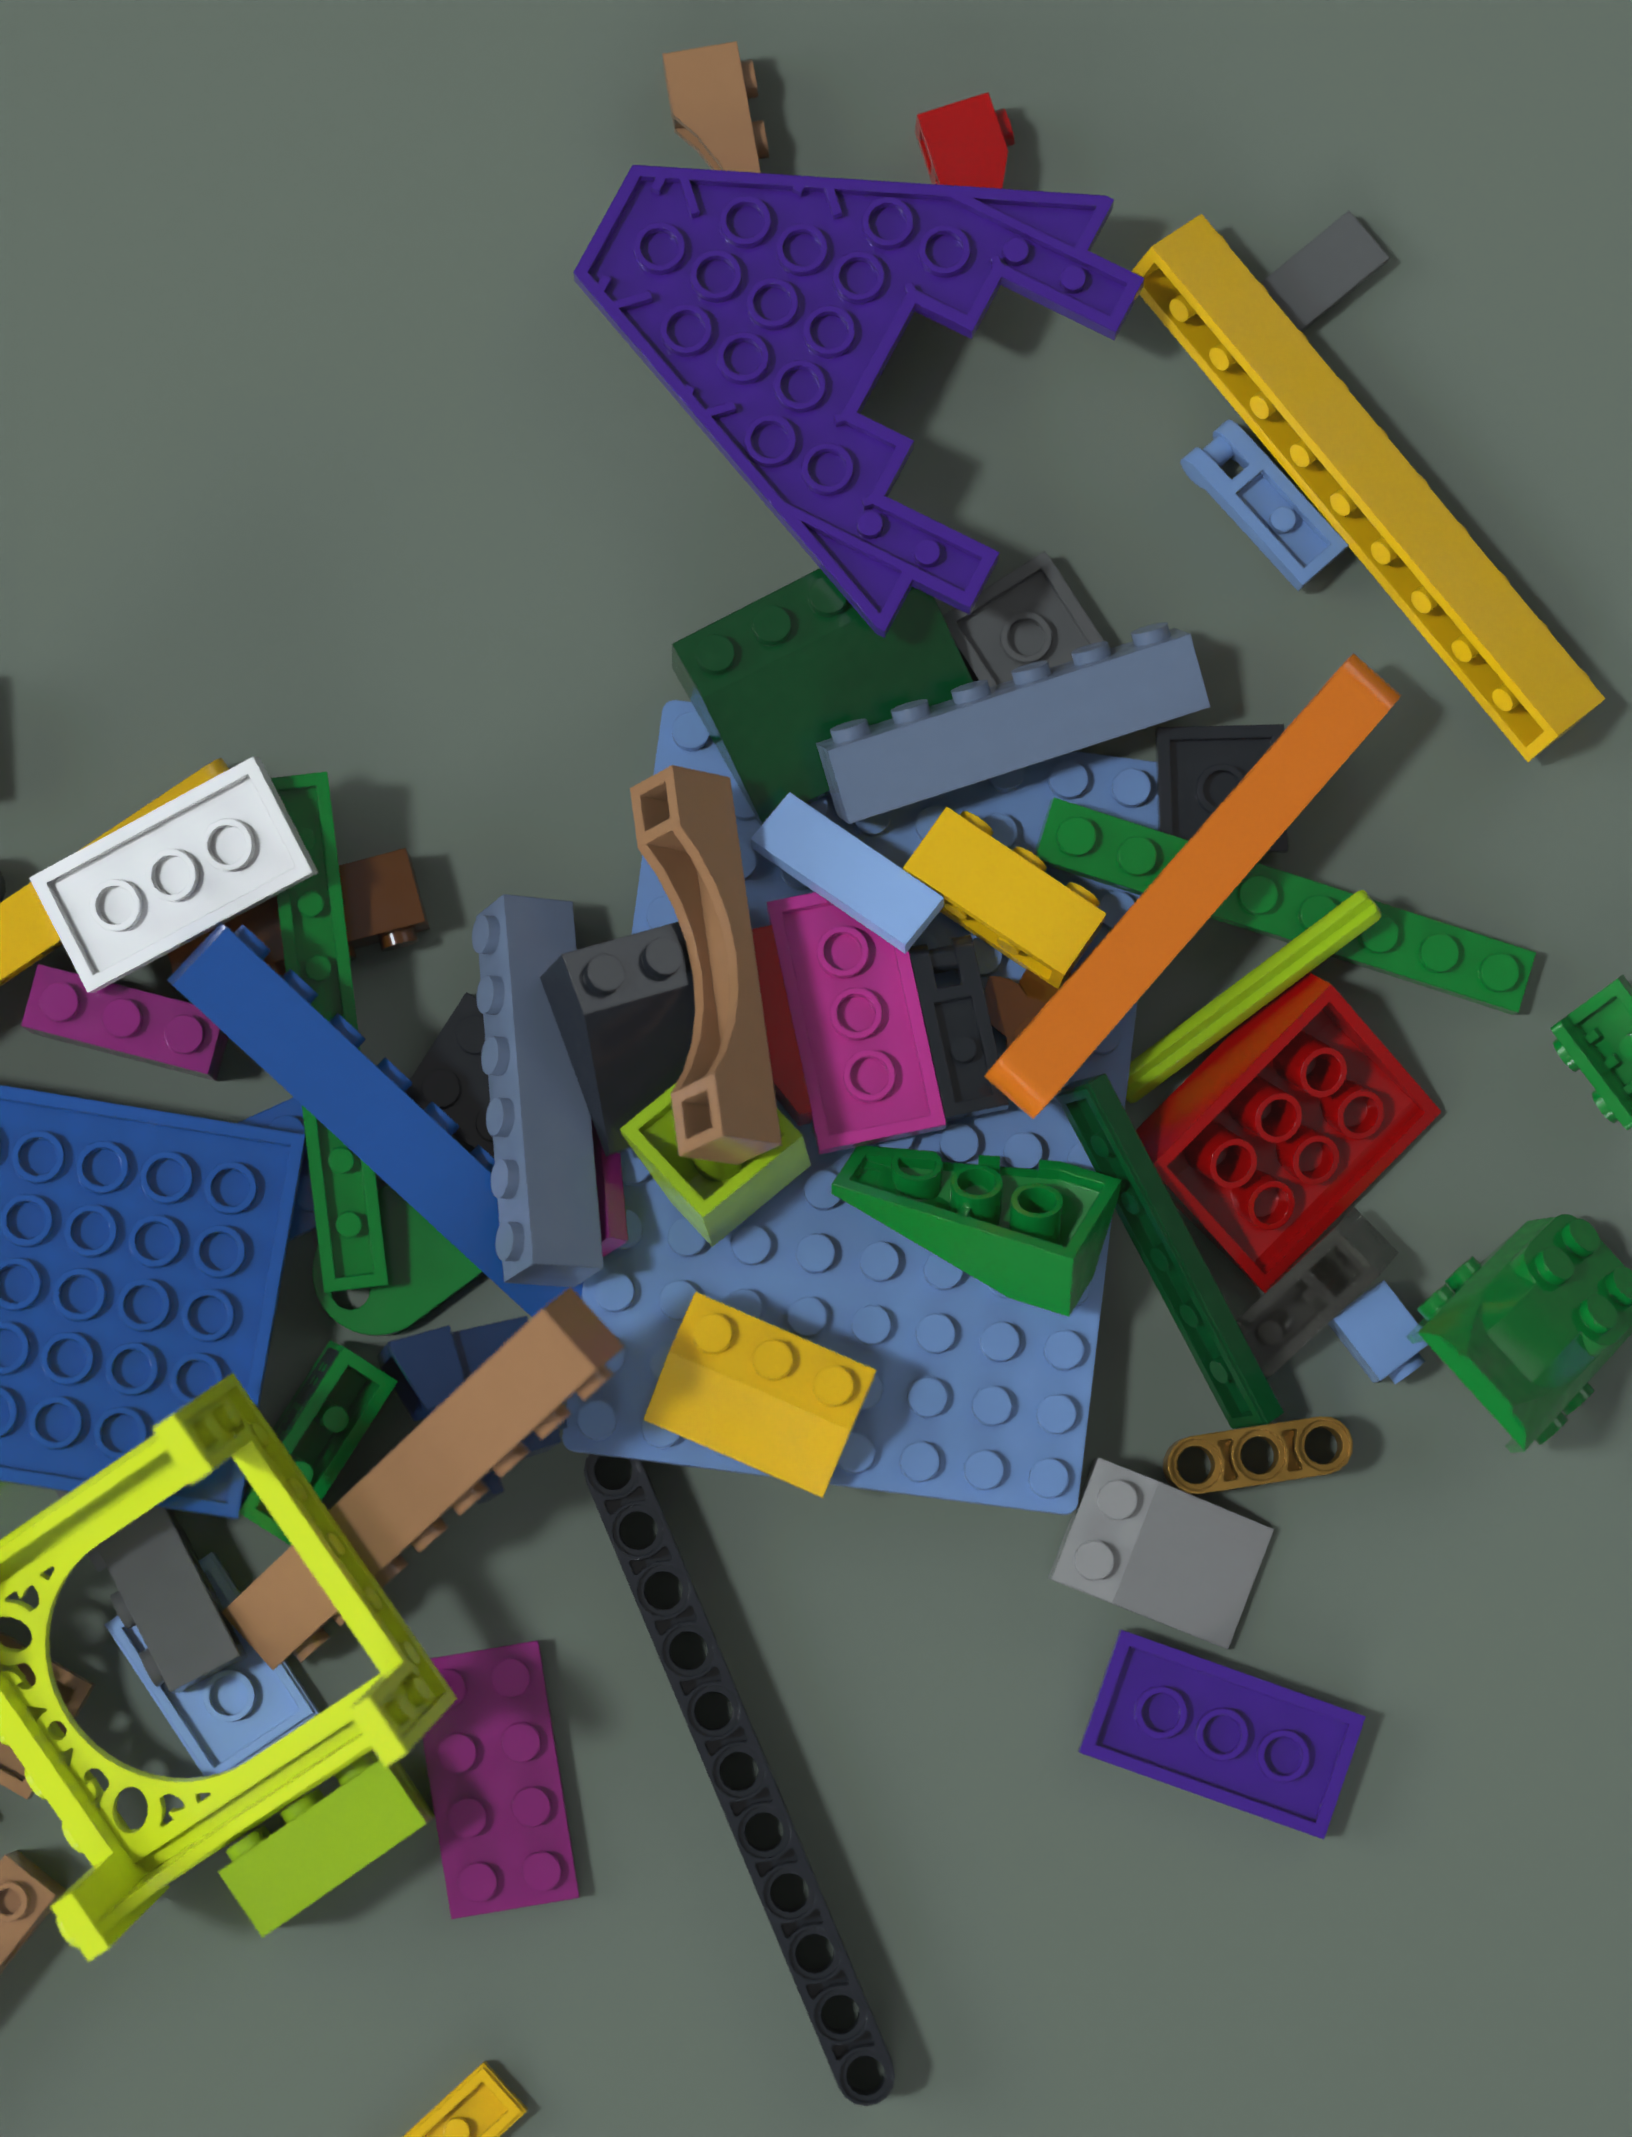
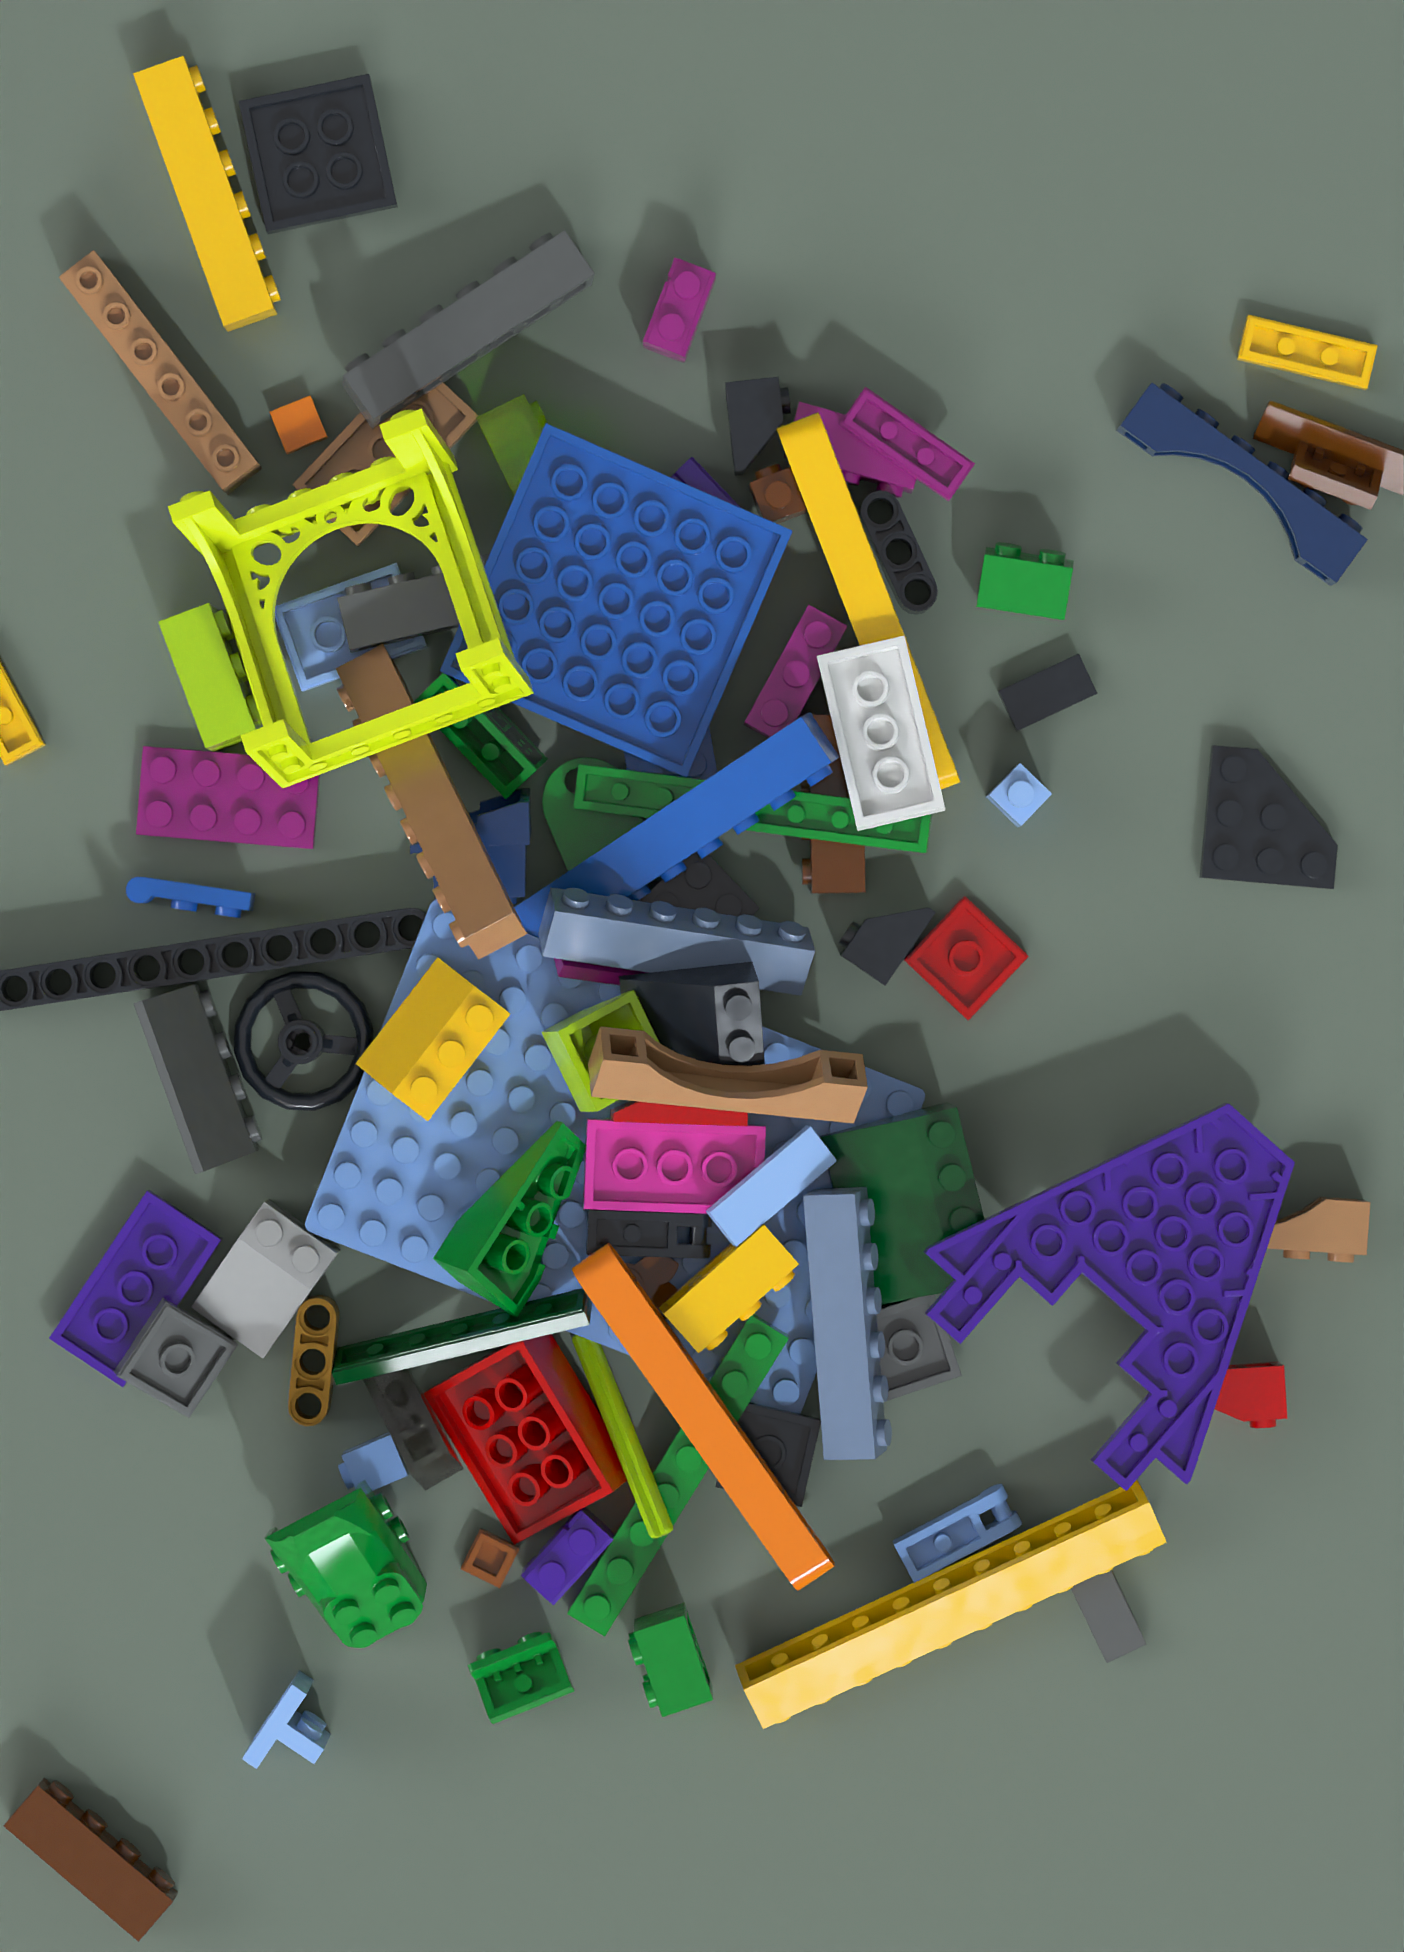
camera: 110 degrees right, 5 degrees up
(69, 671) = (1047, 692): none -> black tile
(184, 336) = (1260, 827): none -> black plate
(220, 672) = (1018, 795): none -> light blue brick
(465, 691) = (966, 958): none -> red tile
(471, 807) = (883, 941): none -> black slope
(647, 1800) = (187, 896): none -> blue plate
(888, 1615) = (280, 989): none -> black piece
(899, 1717) = (198, 1077): none -> dark grey slope
(1304, 1651) = (175, 1357): none -> dark grey tile
(1436, 1031) = (567, 1554): none -> dark purple brick
(1469, 1140) = (490, 1557): none -> dark orange tile
(1543, 844) = (672, 1659): none -> green brick

